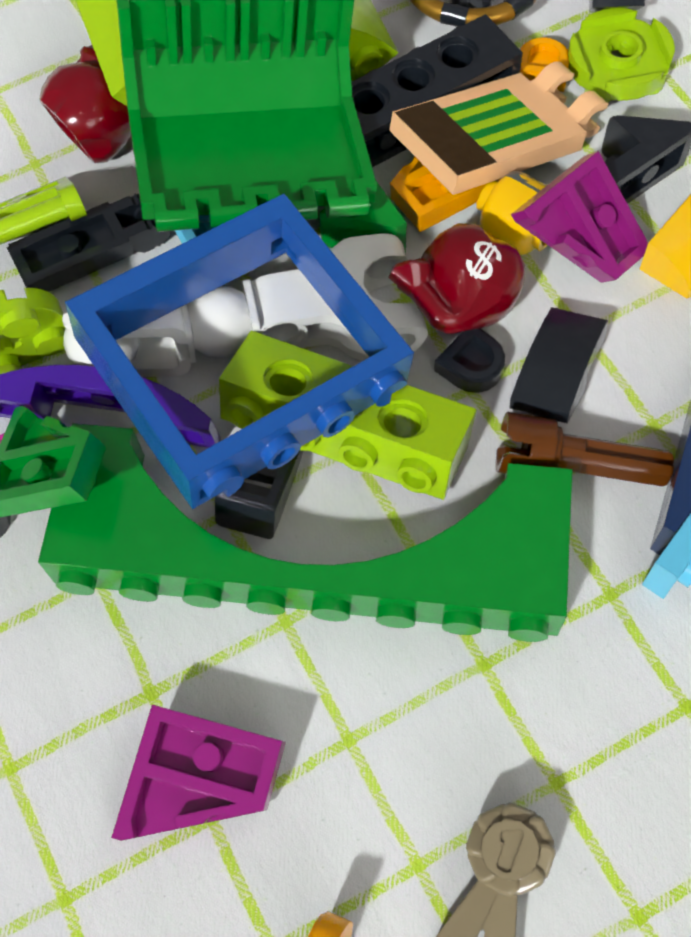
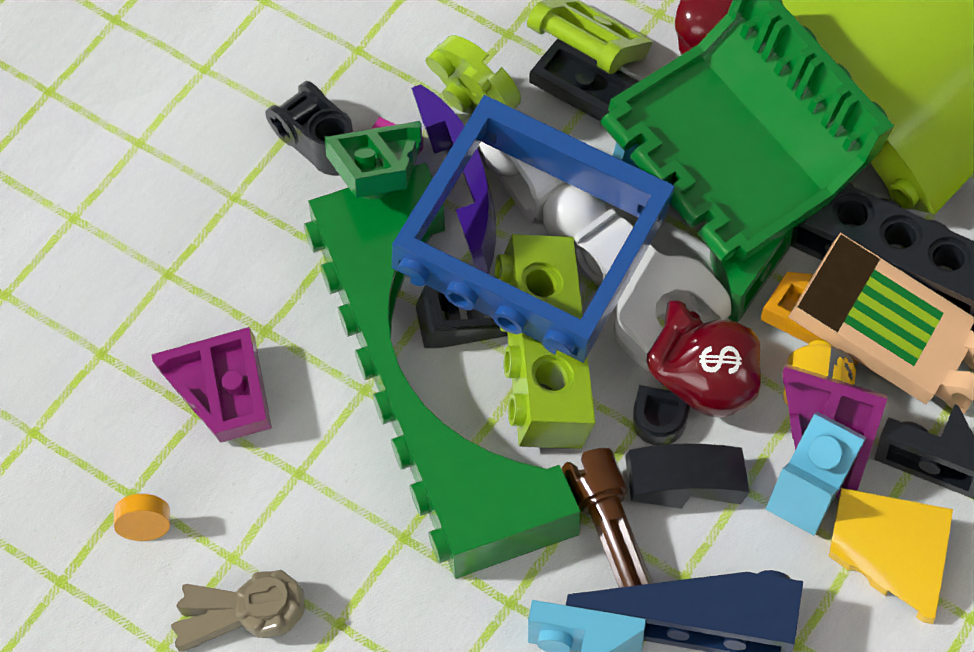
camera: 60 degrees right, 5 degrees down
(625, 260) = (815, 473): none -> medium azure slope

